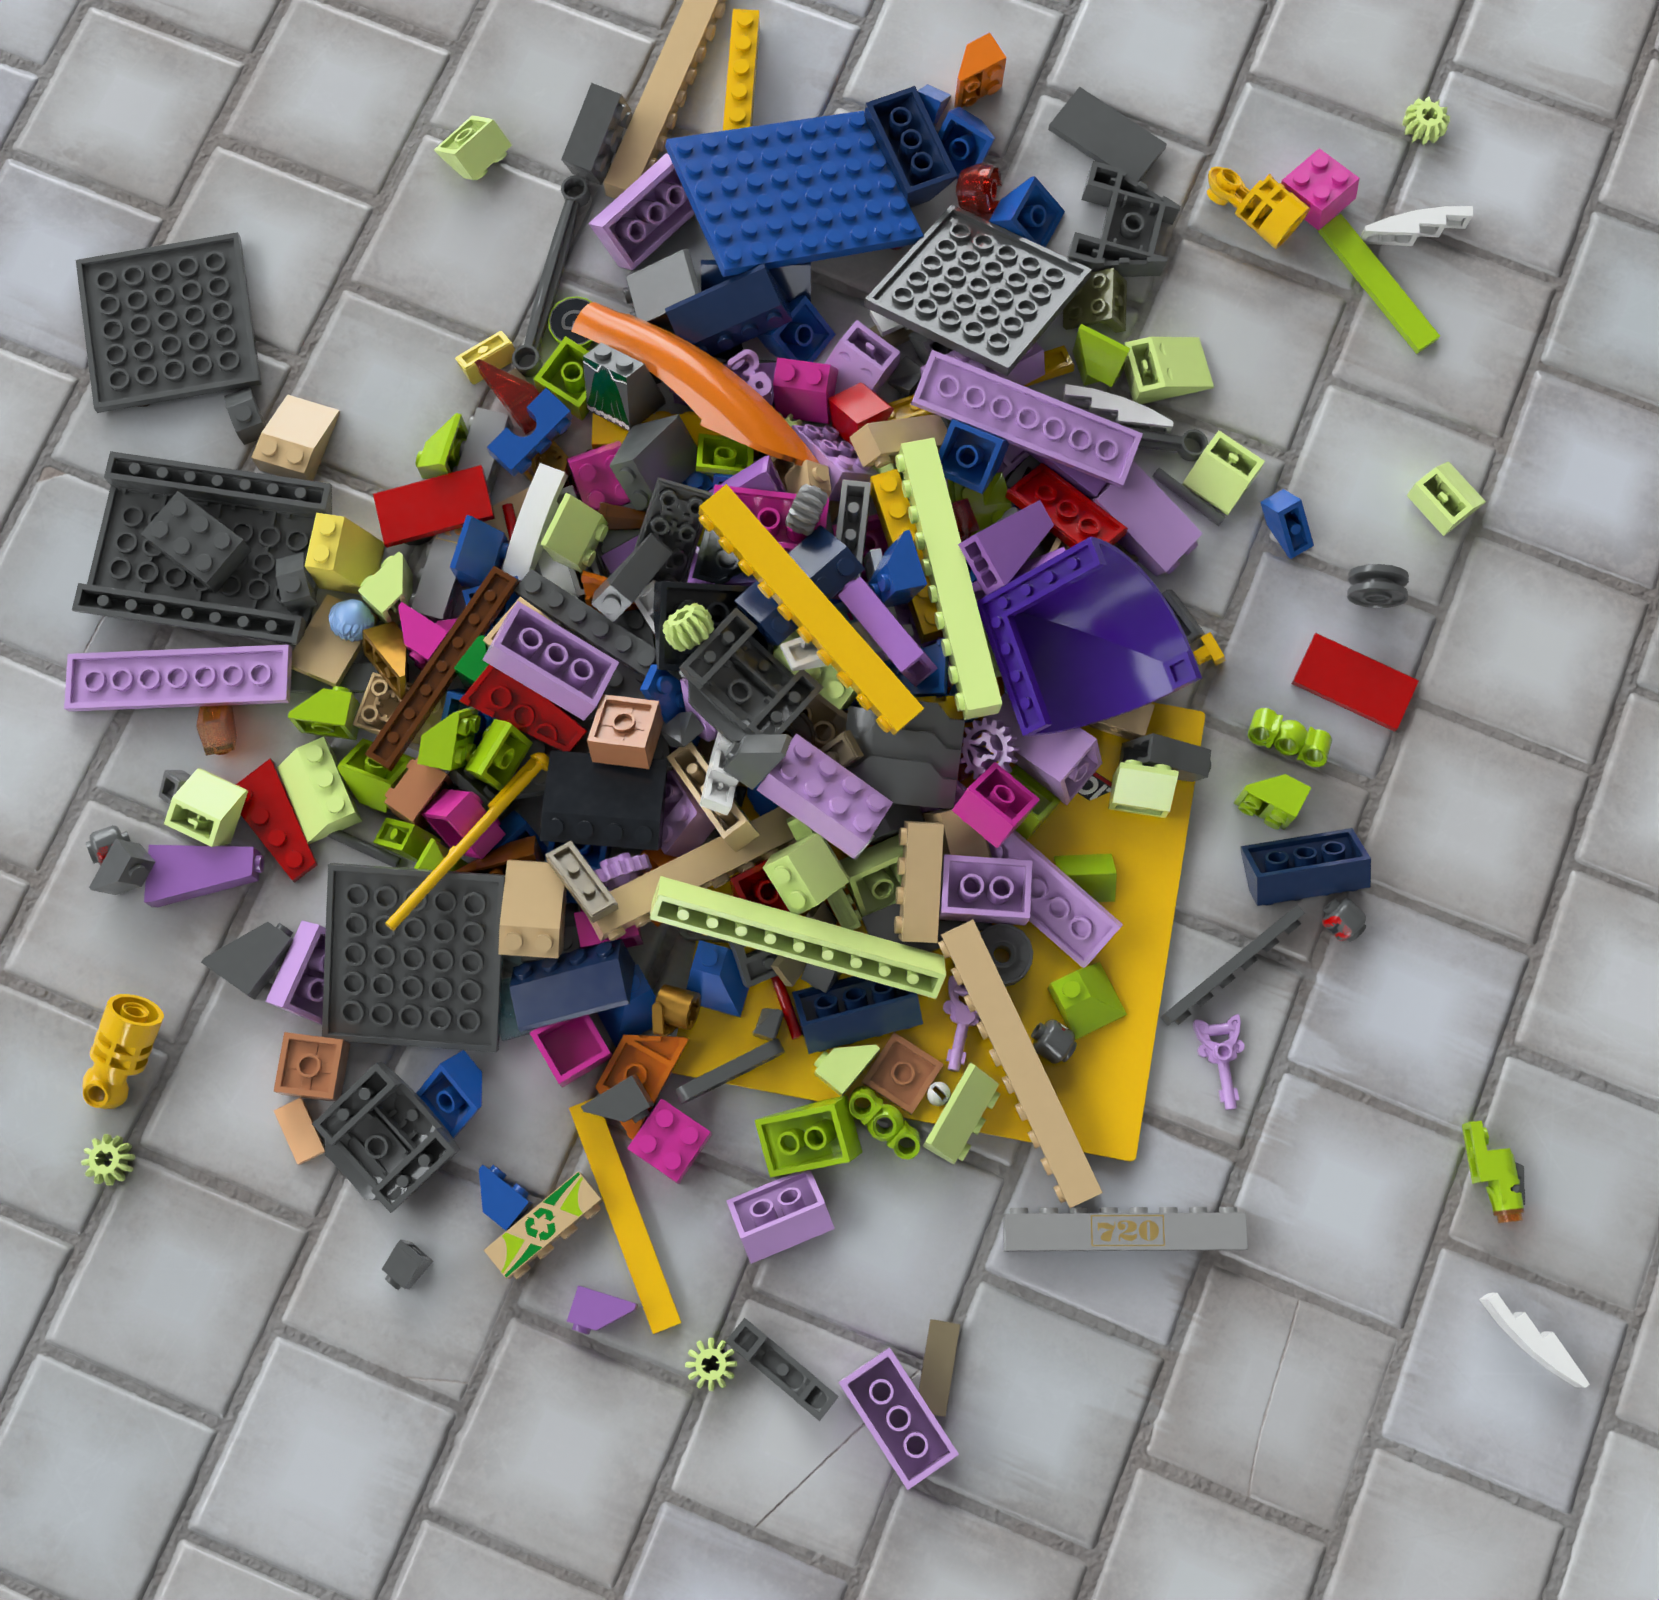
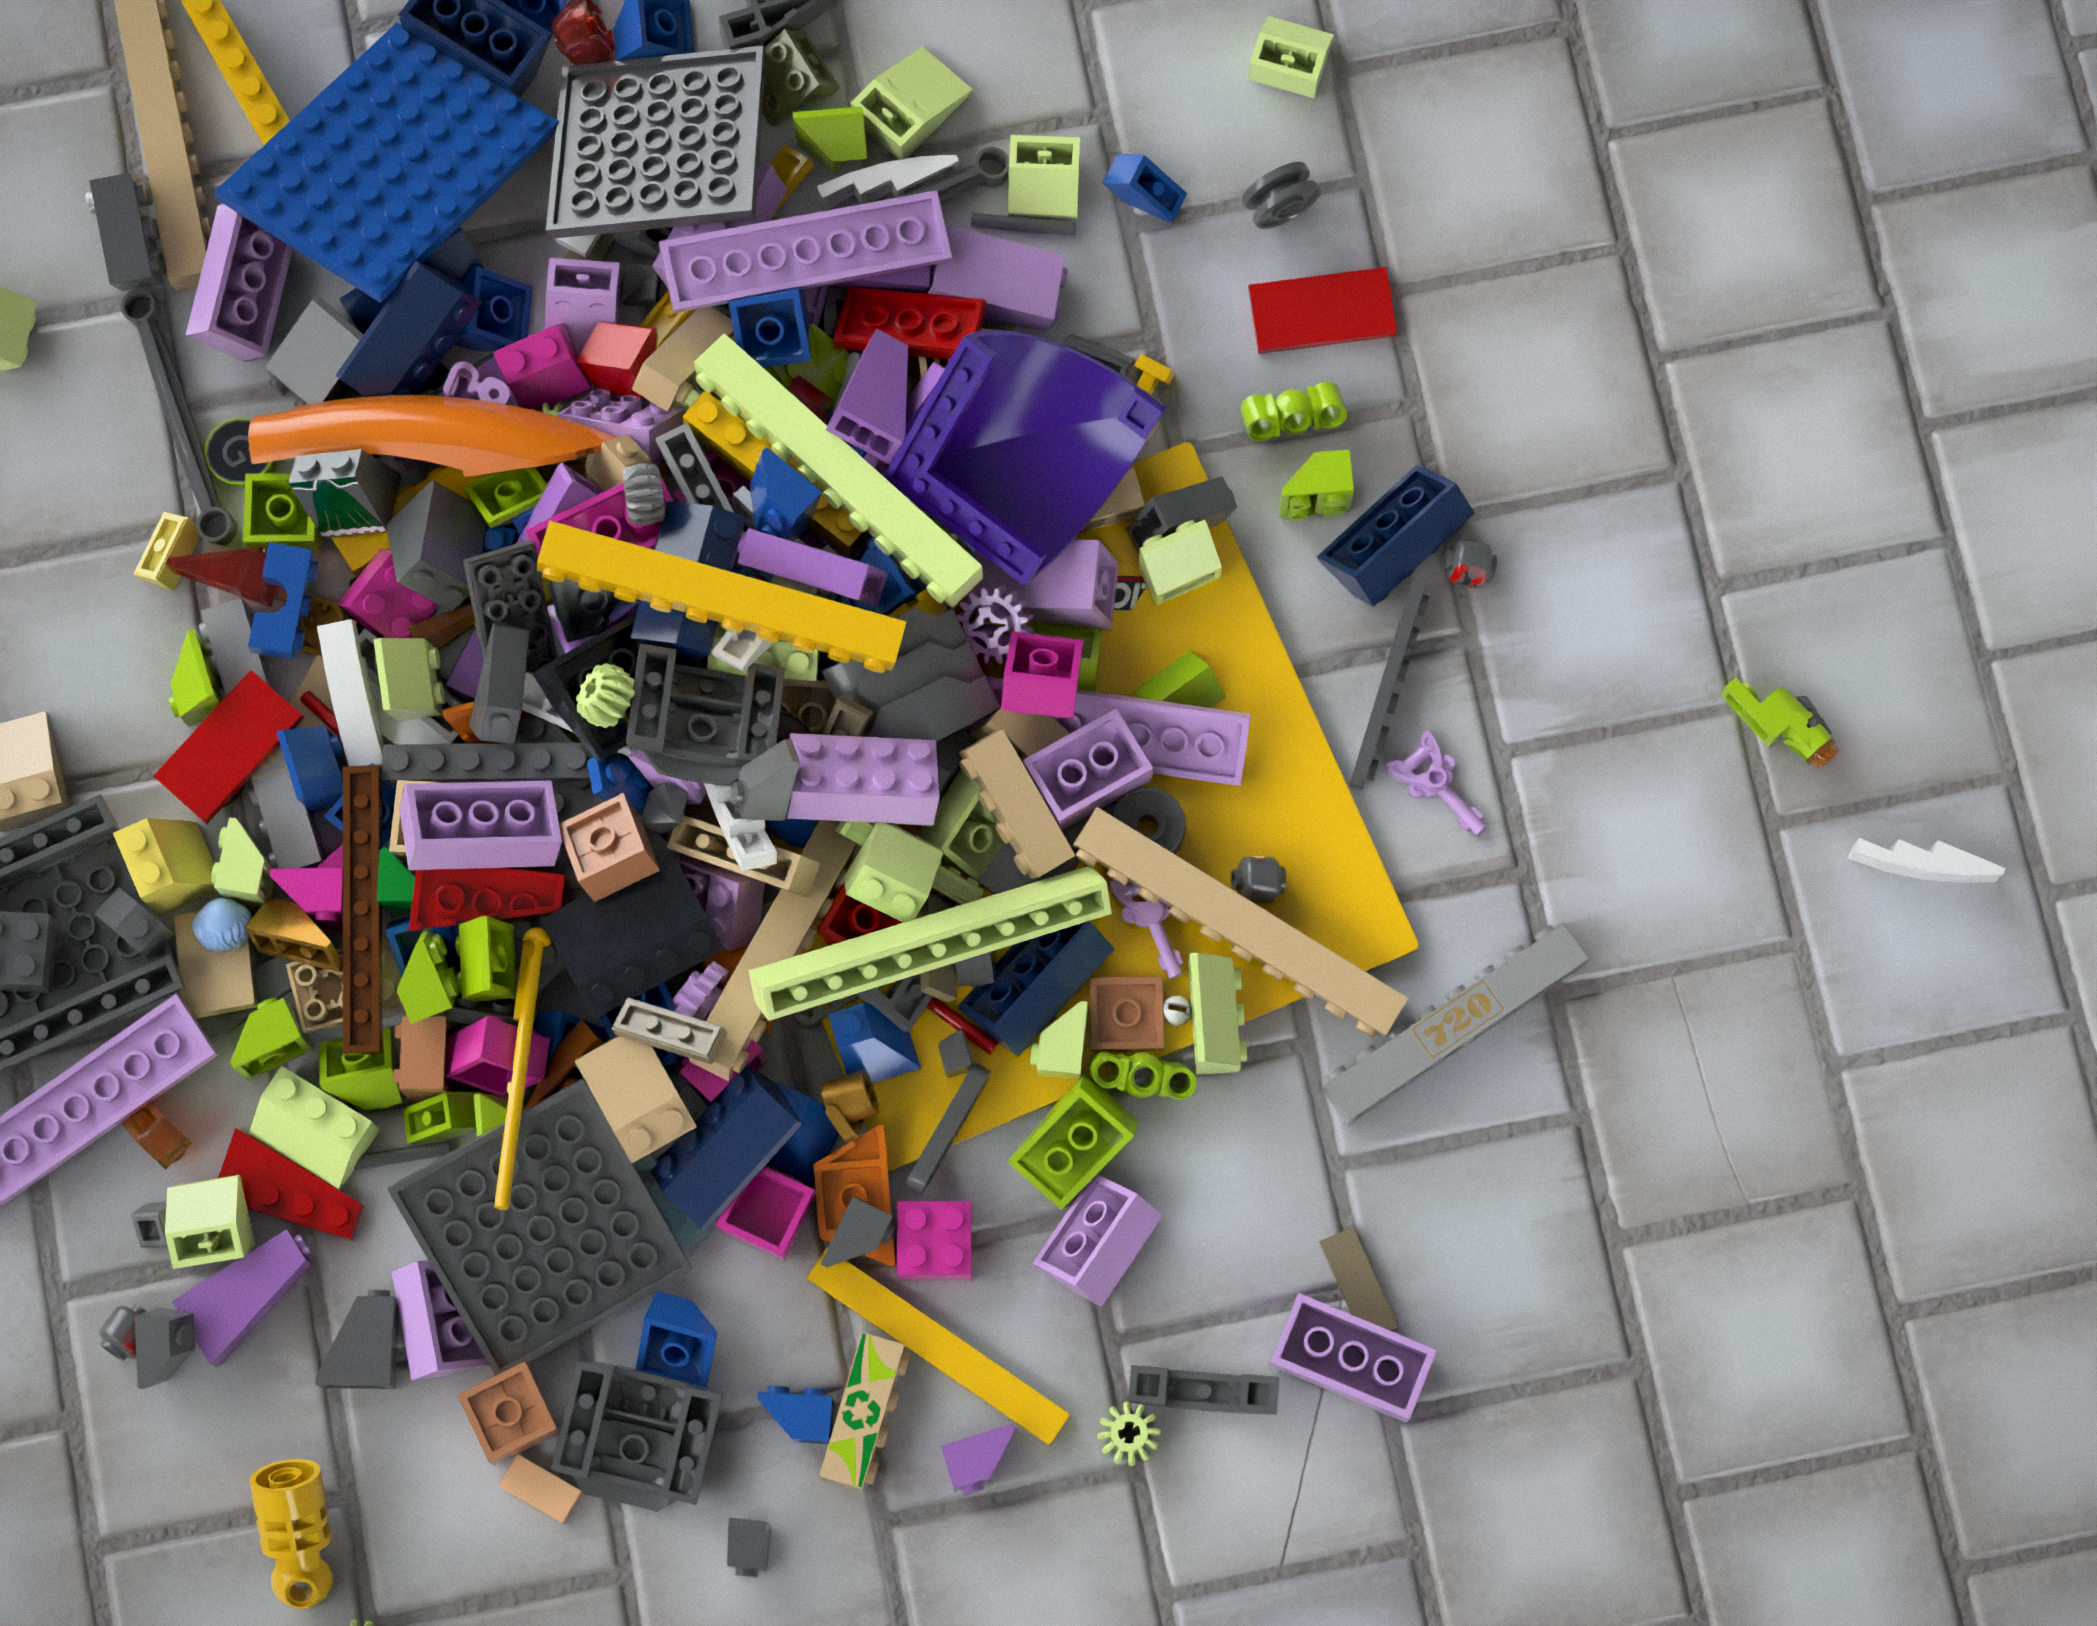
camera: 30 degrees left, 0 degrees up
(1086, 1000) = (1263, 816): lime slope -> none

